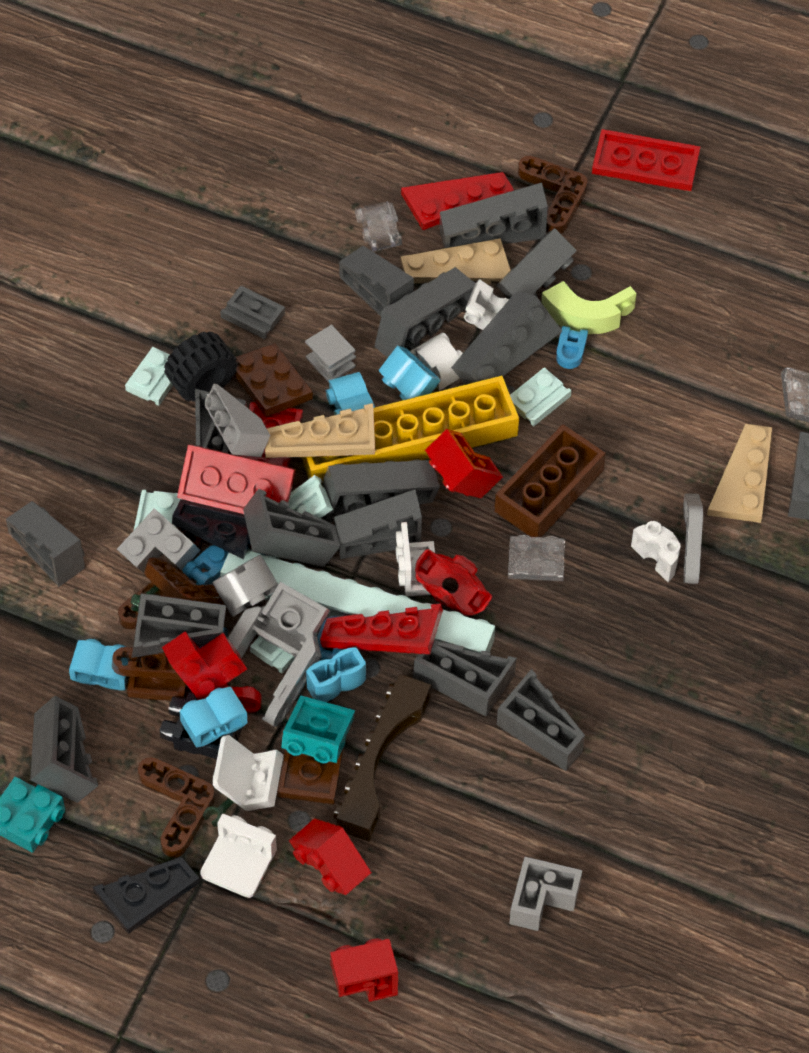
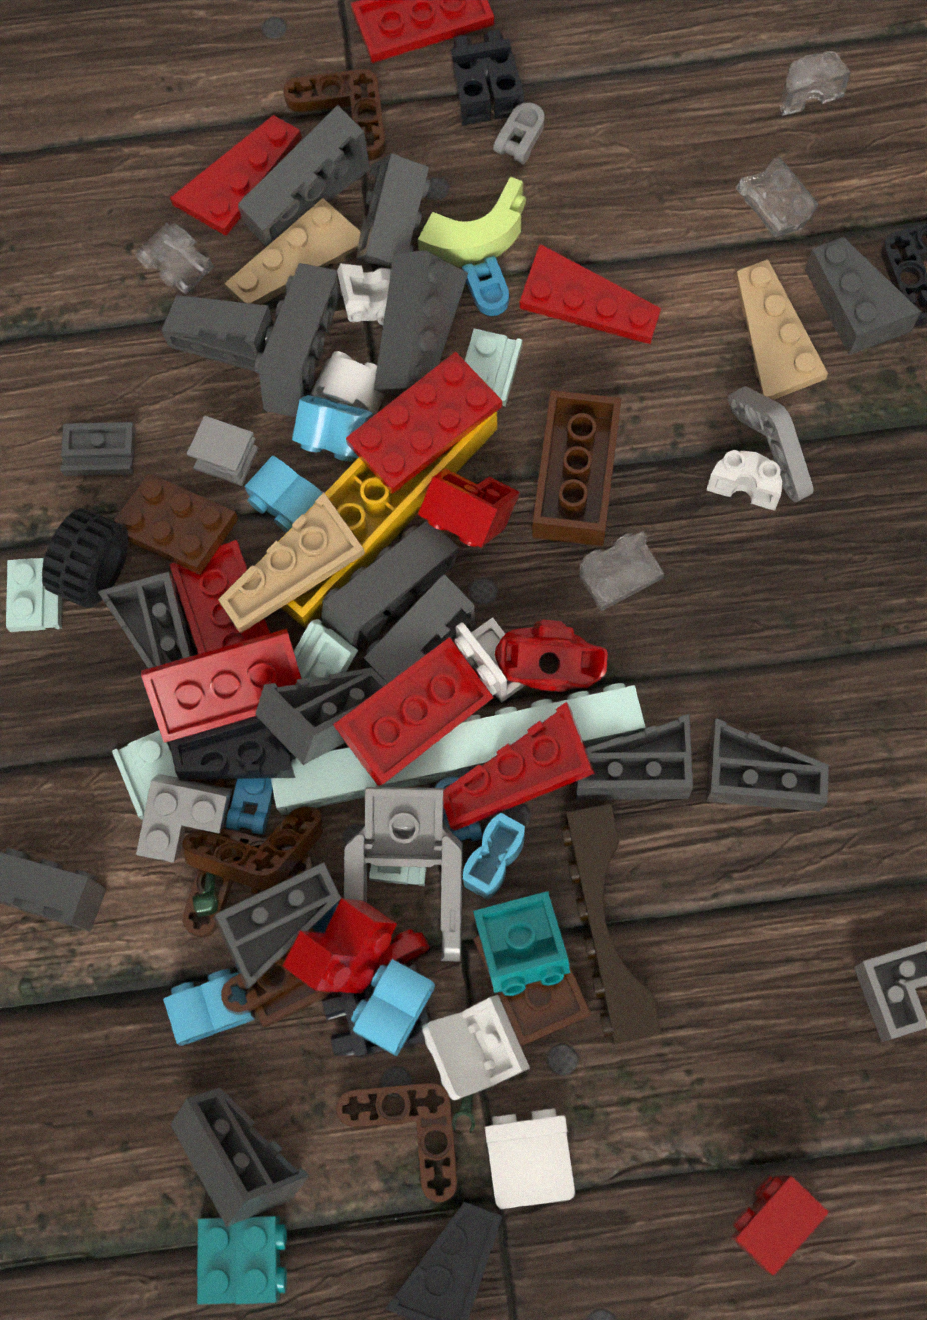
camera: 25 degrees left, 15 degrees up
(237, 424) = (183, 613): light grey slope -> none
(246, 585) = (324, 814): light grey brick -> none
(332, 853) = (635, 1094): red brick -> none
(342, 558) = (413, 711): none -> red plate
(466, 398) = (424, 422): none -> red plate
(630, 386) = (582, 297): none -> red wing
(660, 213) = (485, 65): none -> black hips
(668, 262) = (525, 122): none -> light grey plate

